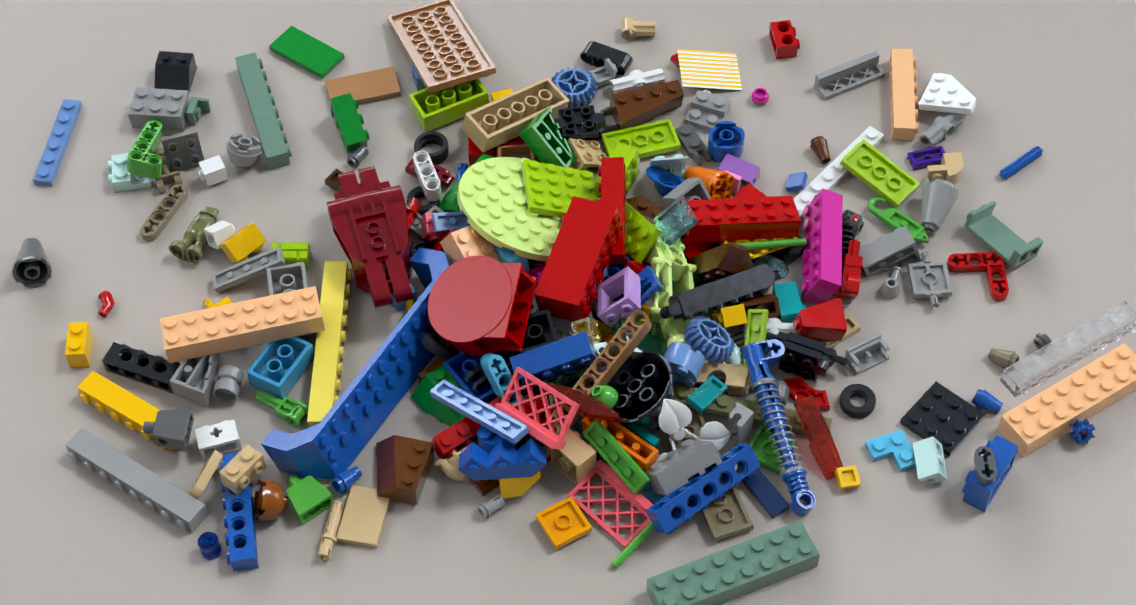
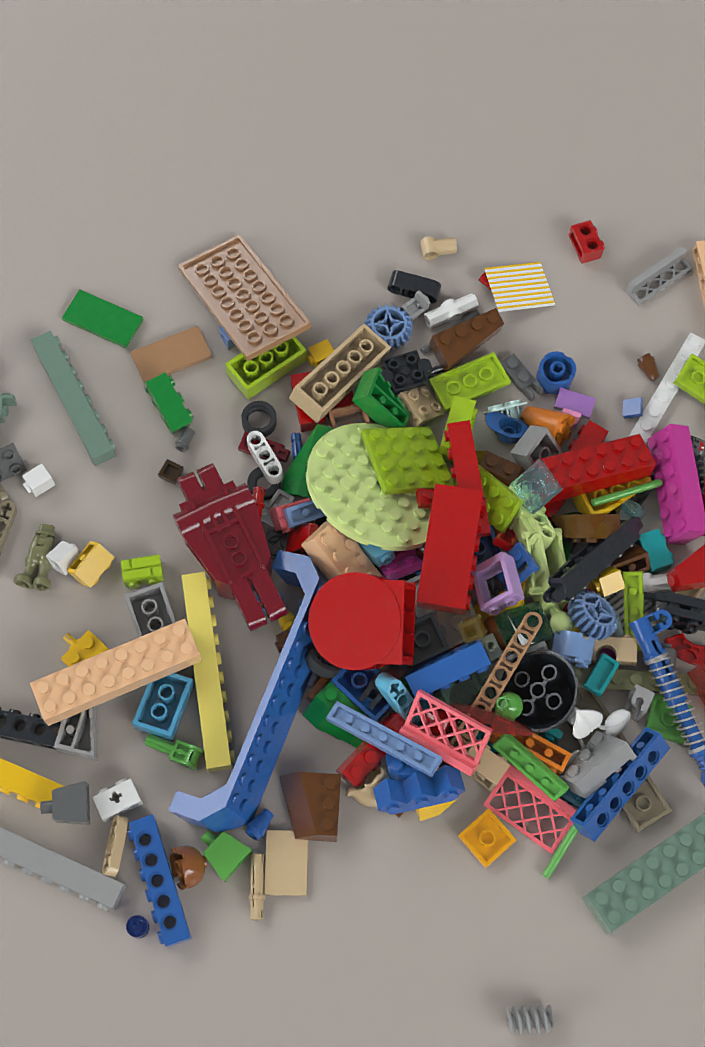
camera: 15 degrees left, 15 degrees up
(228, 384) = (113, 734): light grey wheel -> none
(242, 469) = (156, 842): tan brick -> none
(243, 150) = (65, 451): light grey cone -> none
(247, 269) = (103, 596): light grey plate -> none
(491, 506) = (411, 831): light grey pin -> none
(707, 110) = (528, 336): light grey plate -> none
(760, 96) = (576, 311): dark pink plate -> none
(765, 494) = (677, 773): dark blue tile -> none

